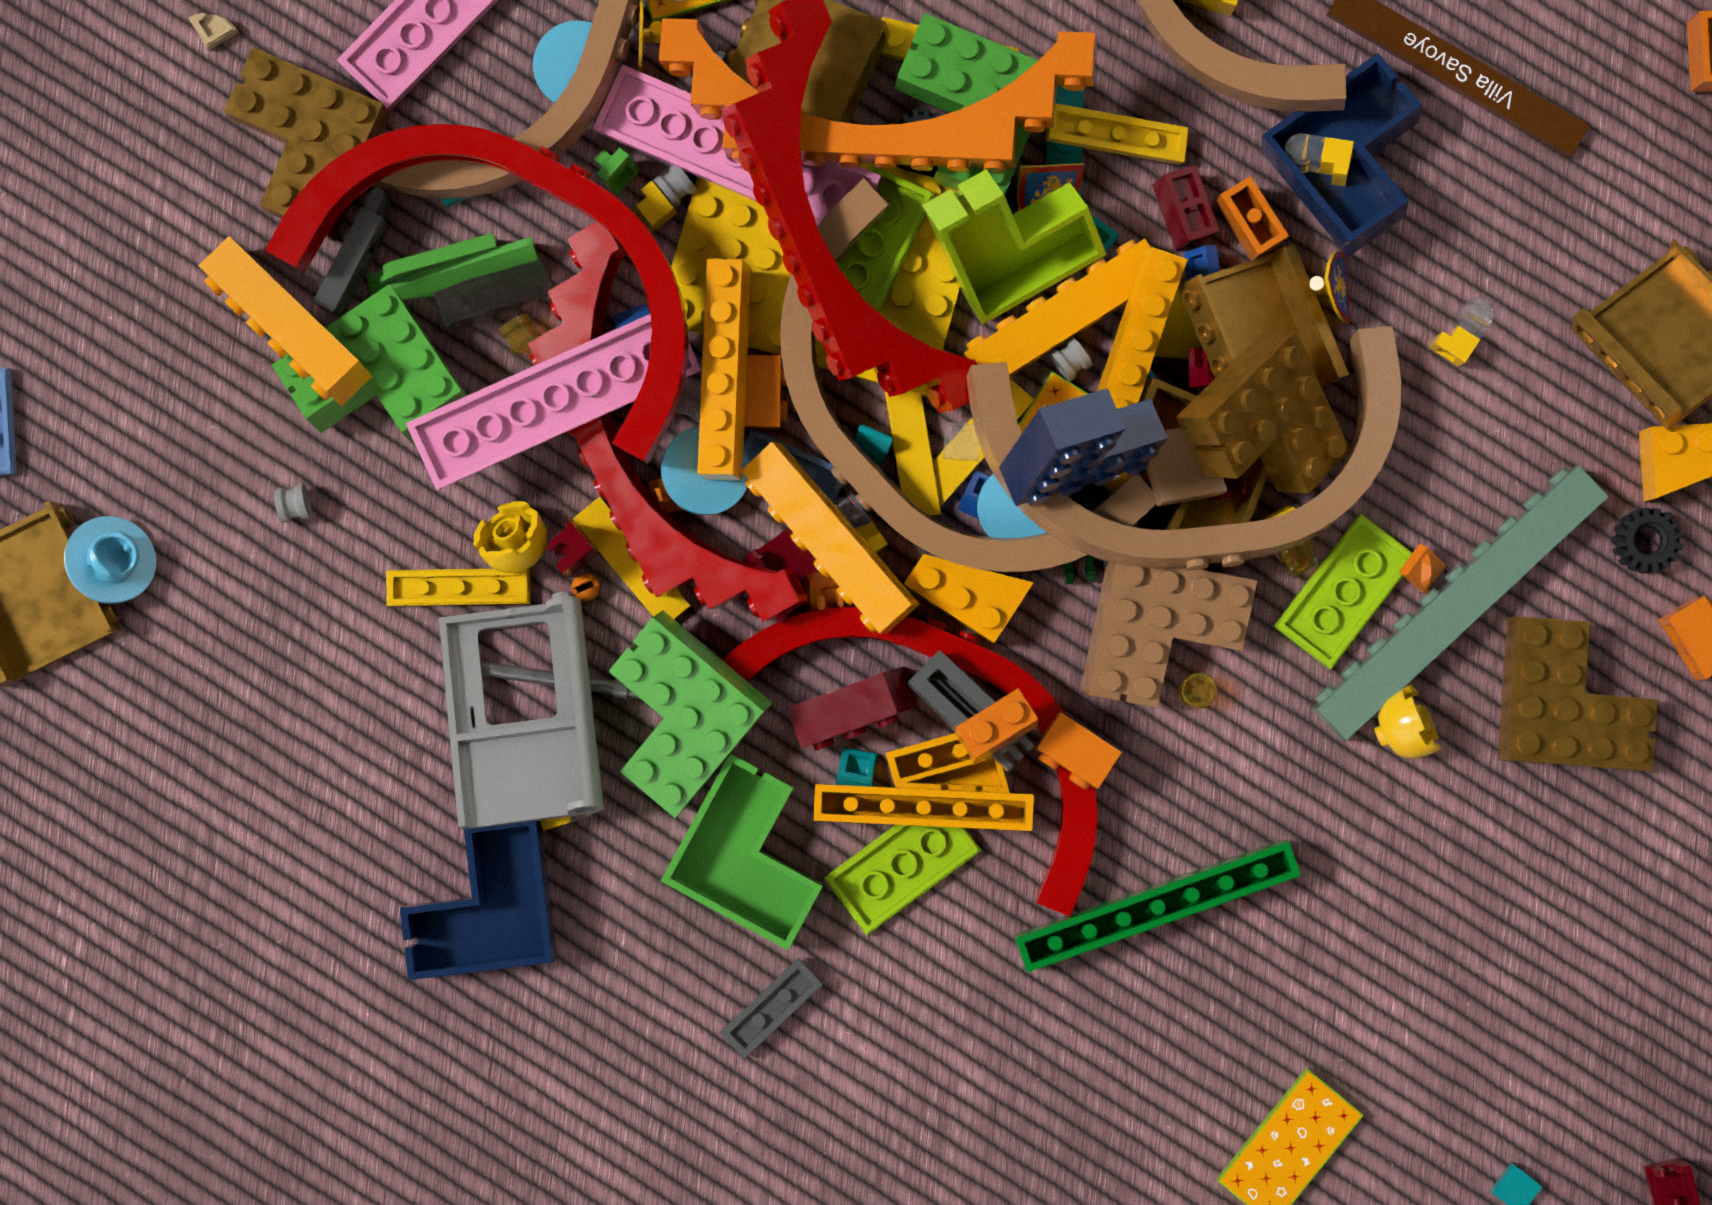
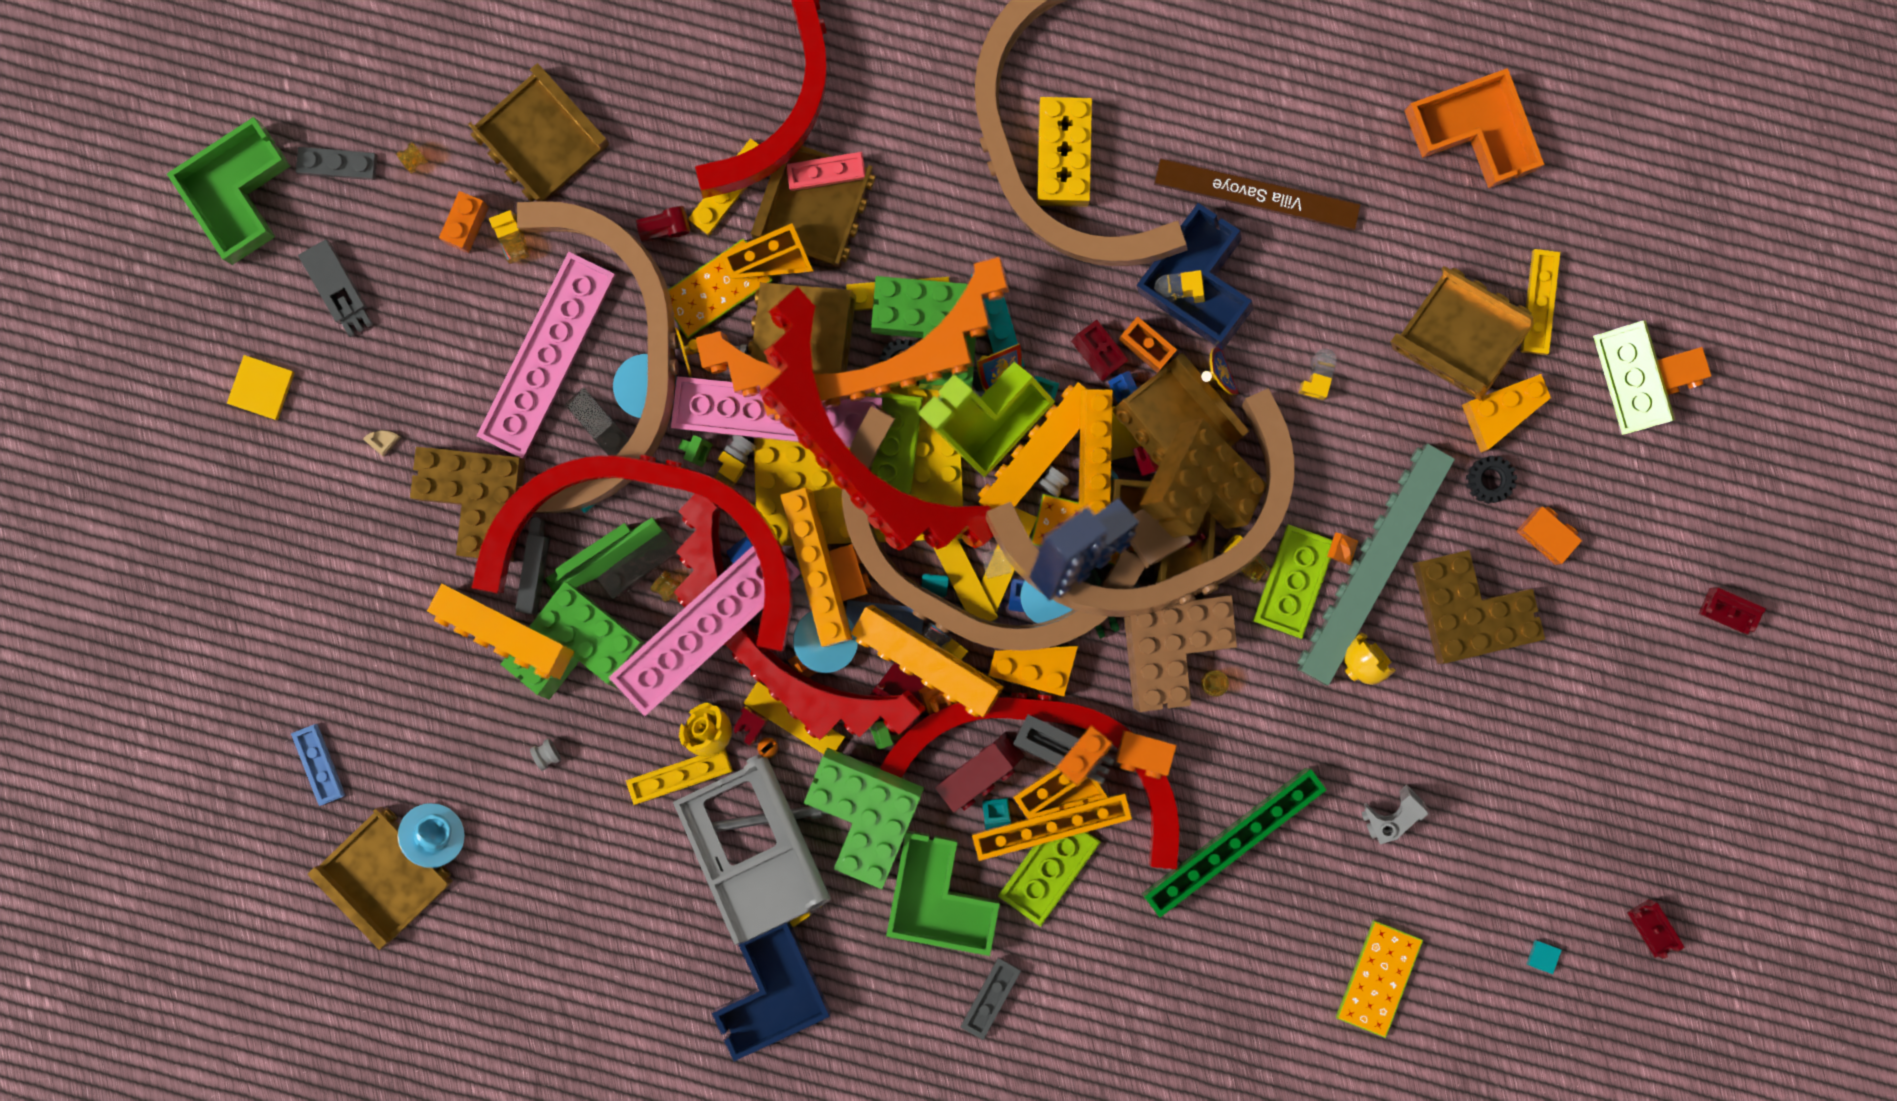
camera: 20 degrees left, 0 degrees up
(499, 91) = (597, 422): none -> clear smoke slope
(739, 619) = (882, 735): none -> bright green tile
(1118, 134) = (1037, 315): yellow plate -> none
(1397, 942) = (1410, 810): none -> light grey tile

